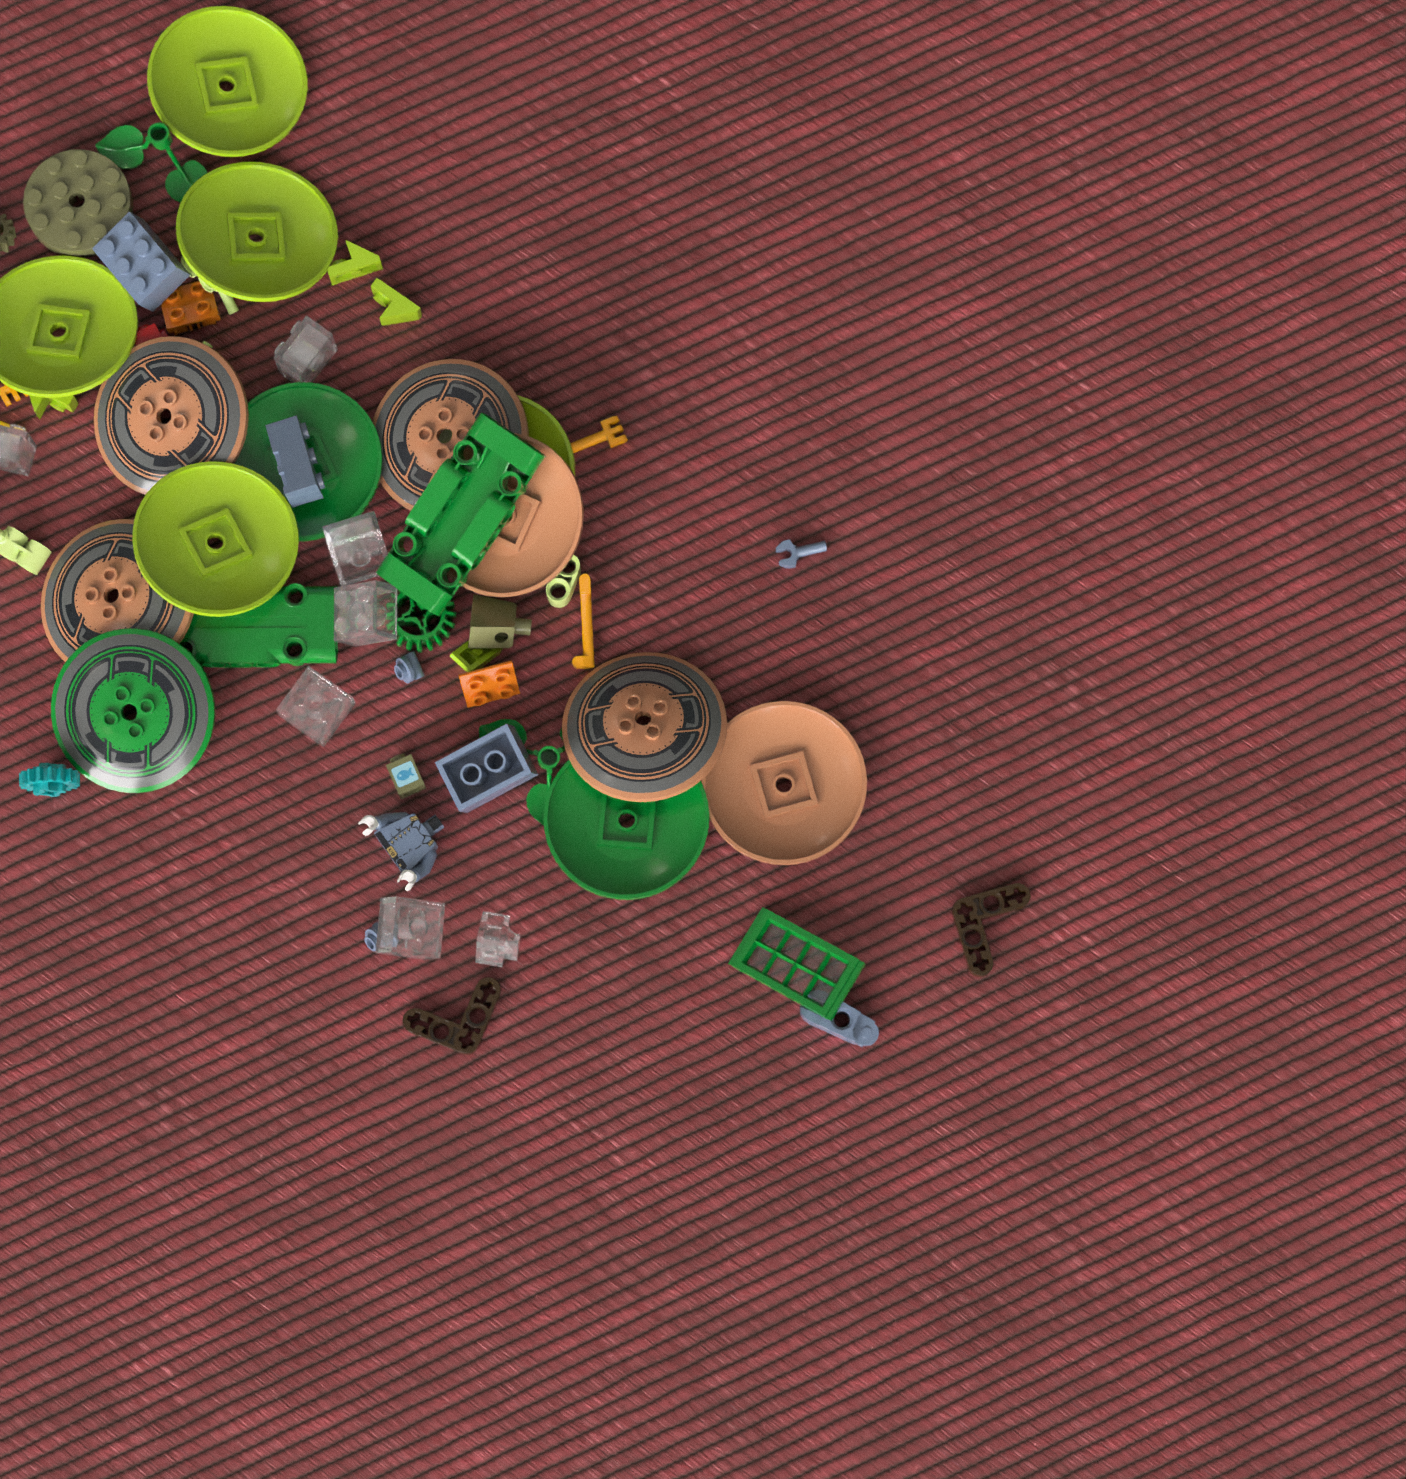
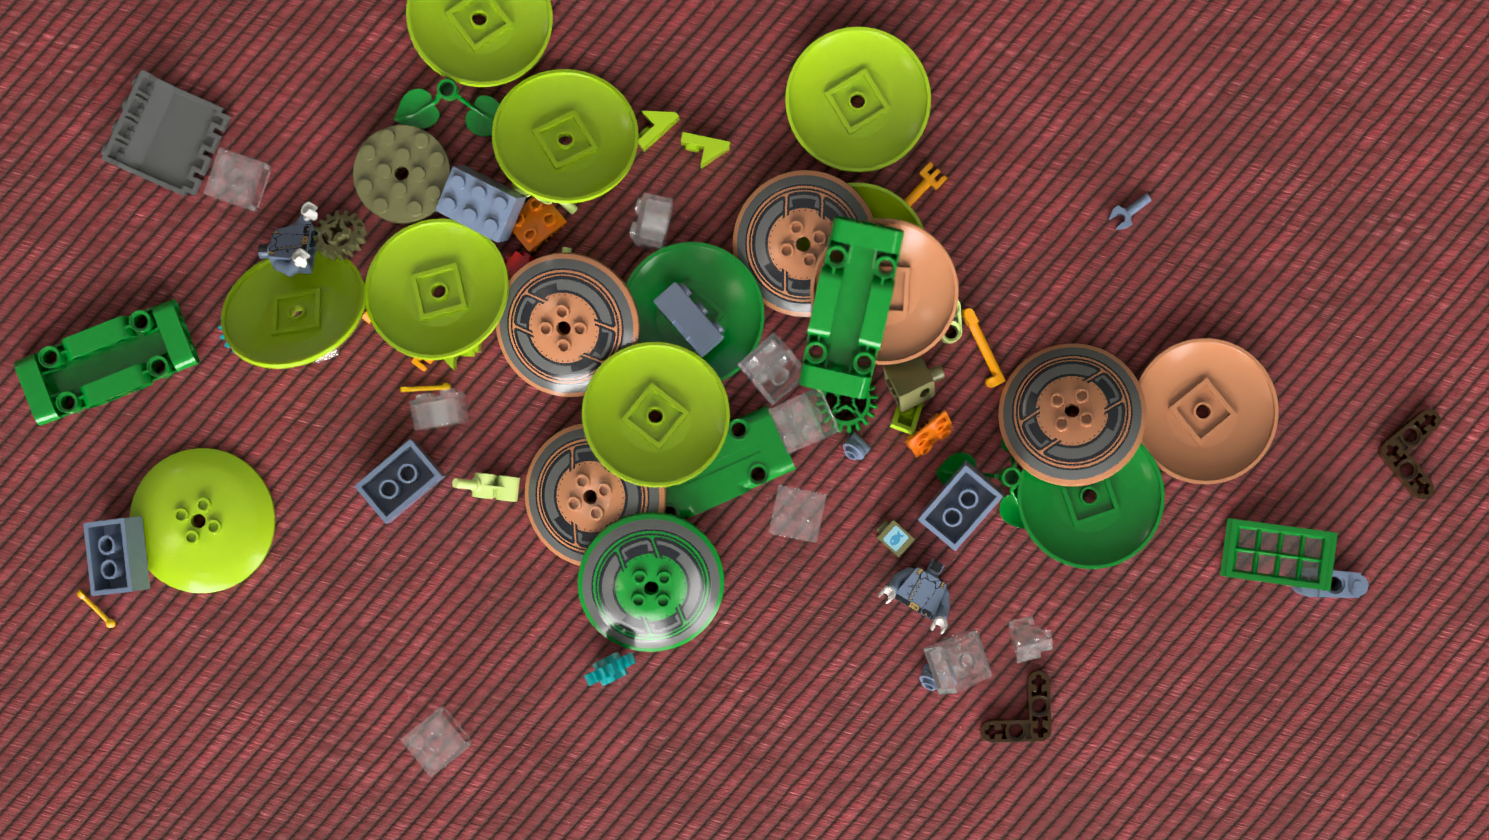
camera: 20 degrees left, 10 degrees up
(563, 285) = (865, 65): none -> lime dish

